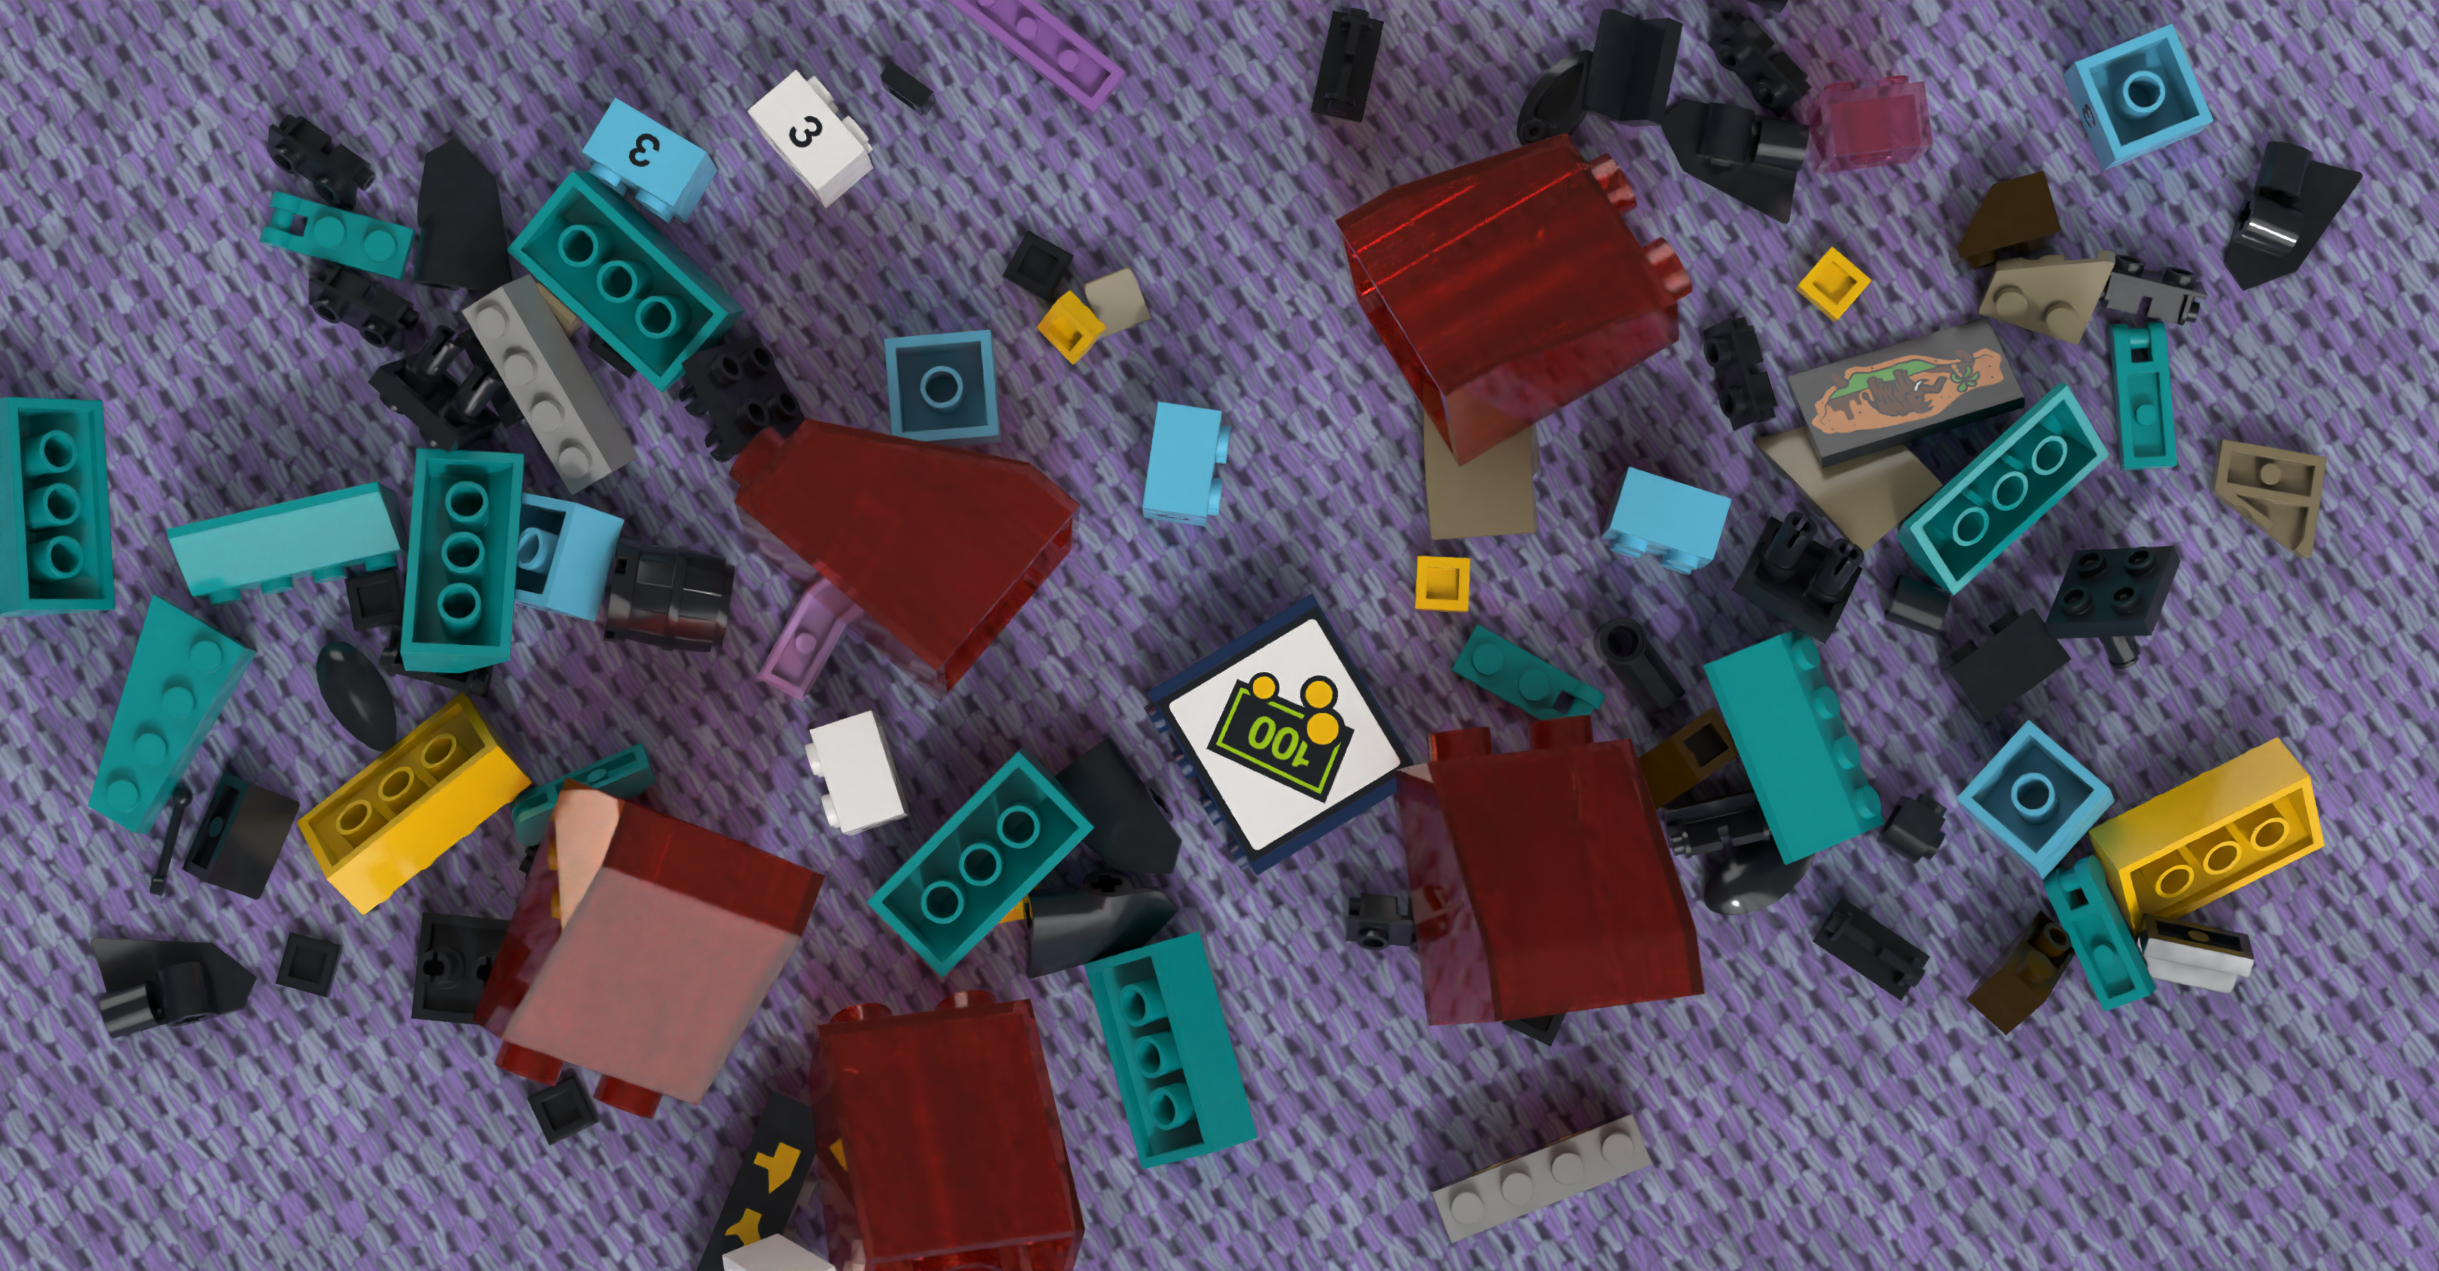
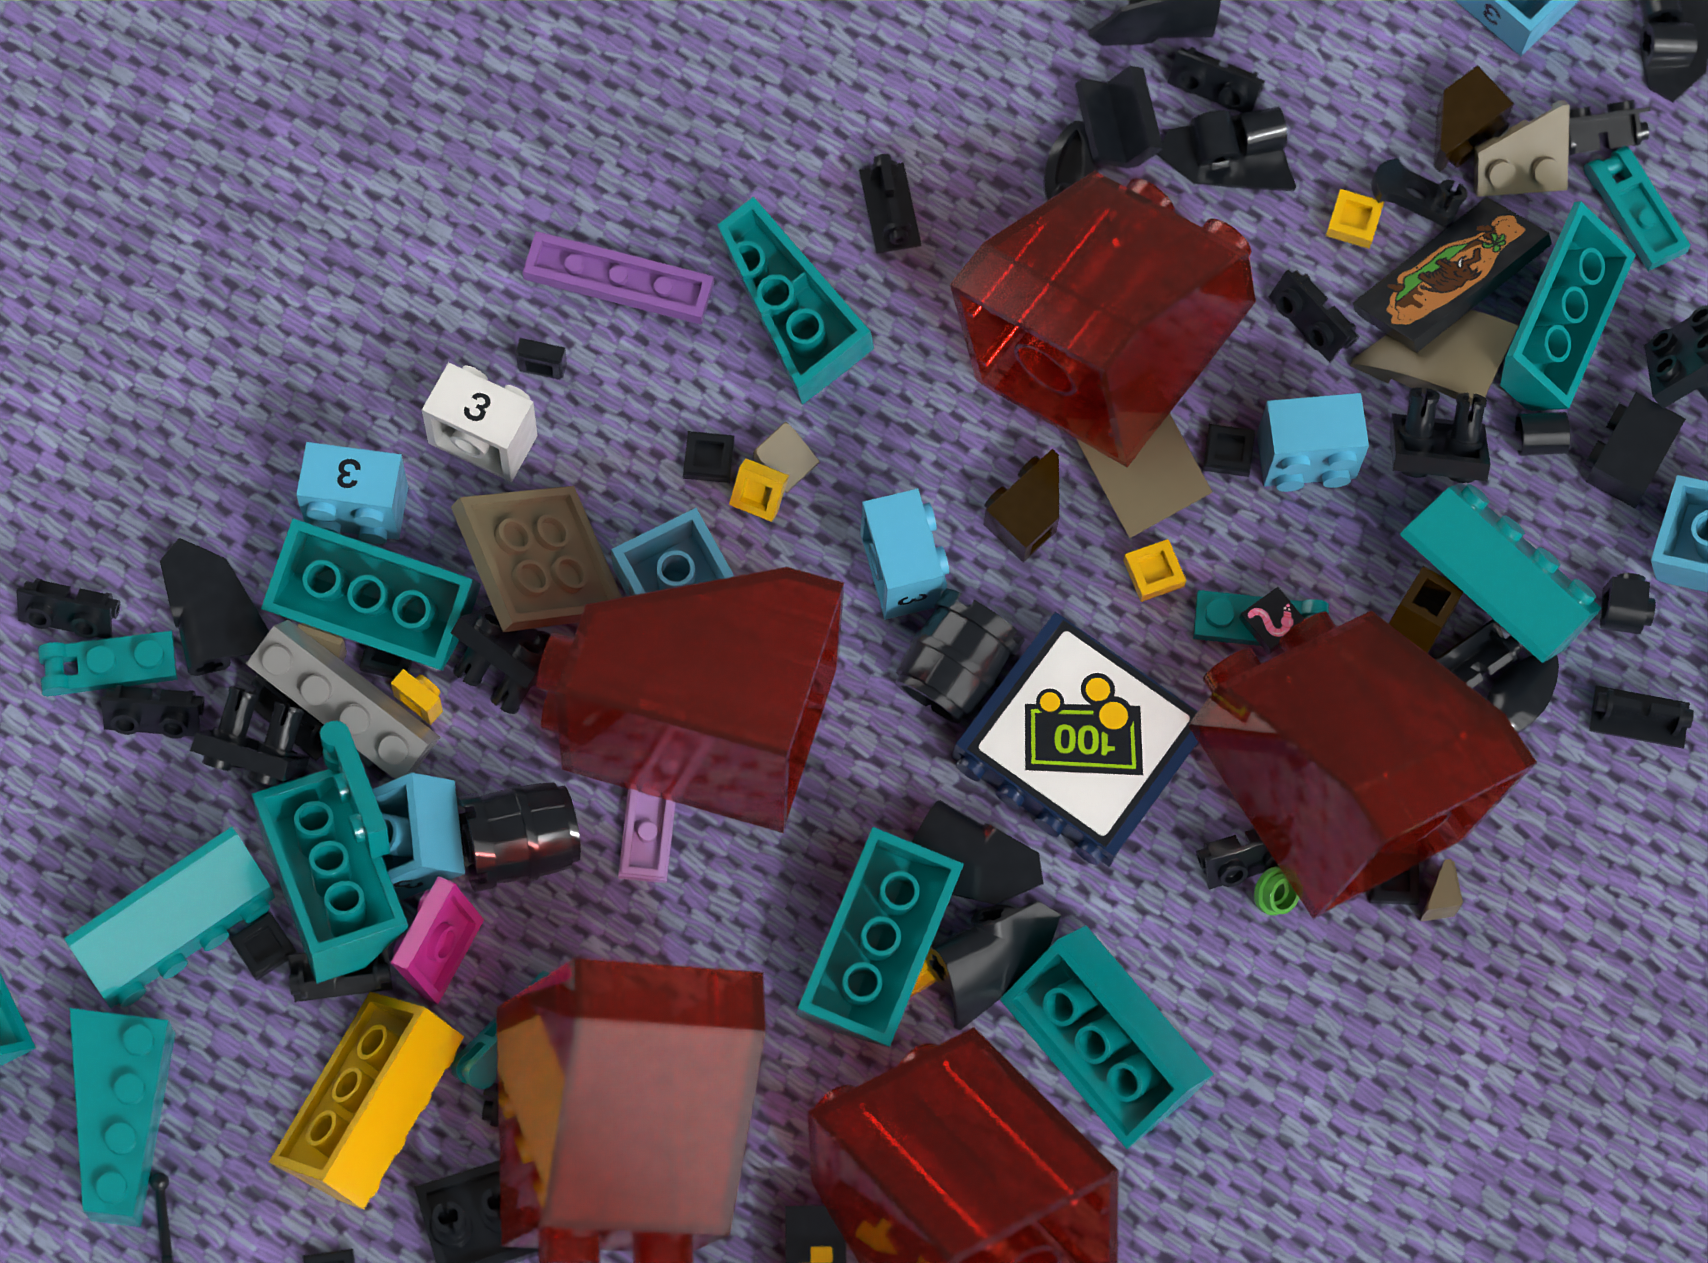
camera: 25 degrees left, 15 degrees down
(241, 836) = (225, 1191): black panel -> none
(356, 695) = (279, 1029): black arm -> none
(515, 490) = (354, 787): none -> teal plate
(541, 675) = (437, 940): none -> dark pink plate
(633, 404) = (418, 695): none -> yellow plate
(809, 313) = (535, 555): none -> dark tan plate
(857, 773) = (743, 910): white brick -> none
(1191, 597) = (956, 657): none -> black piece
(1202, 163) = (797, 306): none -> teal wedge
(1340, 466) = (1029, 509): none -> dark brown slope
(1404, 977) = (1274, 893): none -> bright green plate
(1535, 694) = (1271, 619): none -> black tile
(1540, 1176) = (1463, 1008): light grey brick -> none
(1577, 1050) = (1445, 894): none -> dark tan slope
(1581, 484) = (1228, 450): none -> black tile
(1641, 670) = (1347, 570): black piece -> none
(1868, 125) = (1327, 84): clear pink brick -> none
(1886, 266) = (1393, 178): none -> black piece

